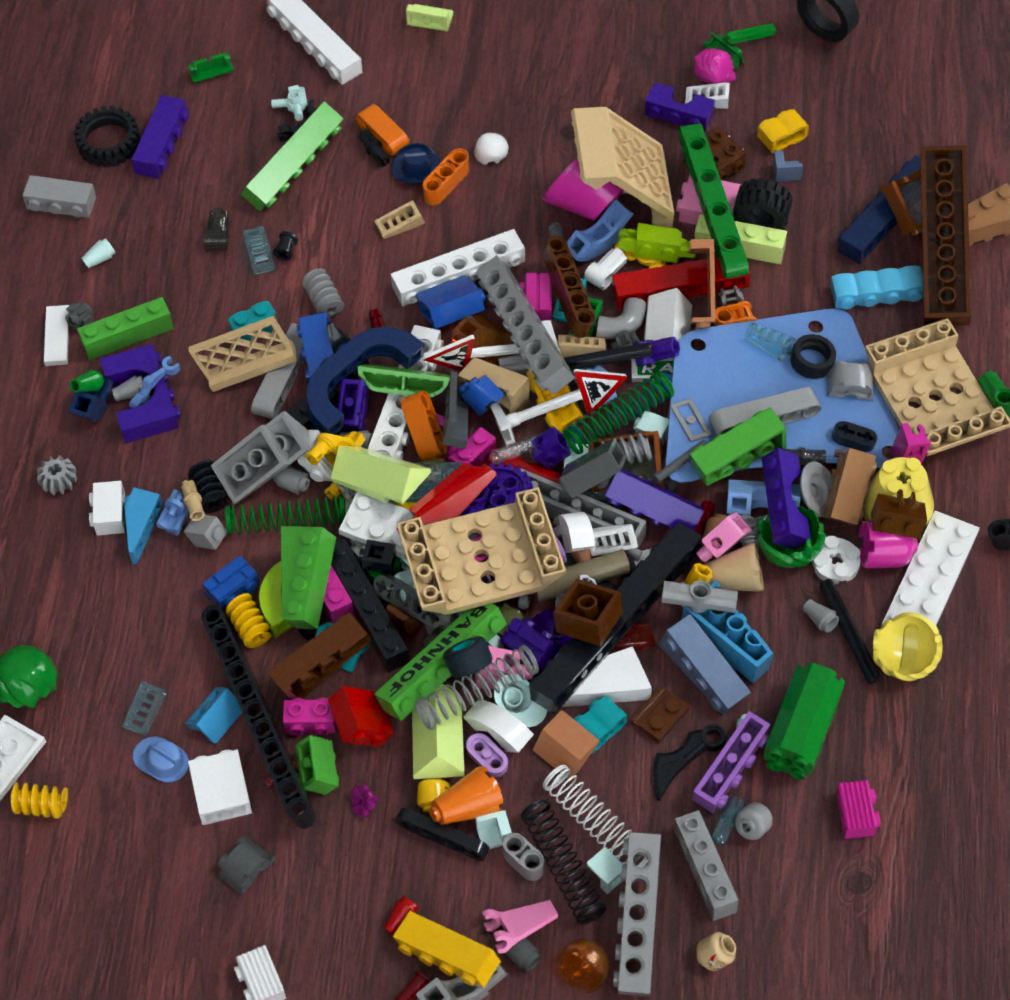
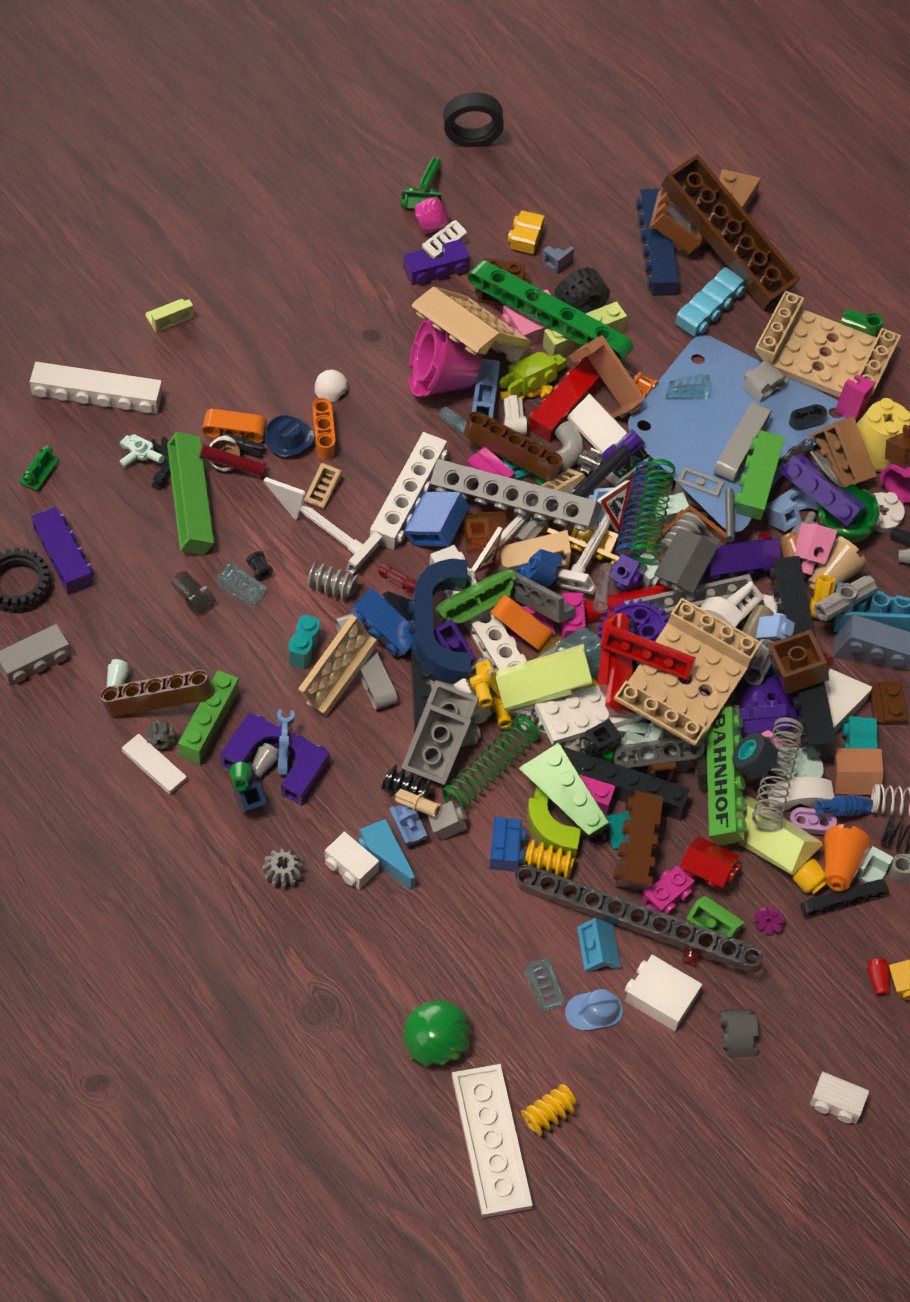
camera: 50 degrees left, 0 degrees up
(103, 282) = (157, 693): none -> reddish brown beam
(348, 153) = (232, 460): none -> dark red pin
(349, 144) = (226, 444): none -> medium nougat hair
(369, 288) = (292, 500): none -> white piece
(466, 510) = (648, 652): none -> red brick
(520, 761) = (844, 805): none -> blue hinge
(610, 575) = (774, 627): none -> light blue brick
(817, 343) = (729, 369): black tyre -> none

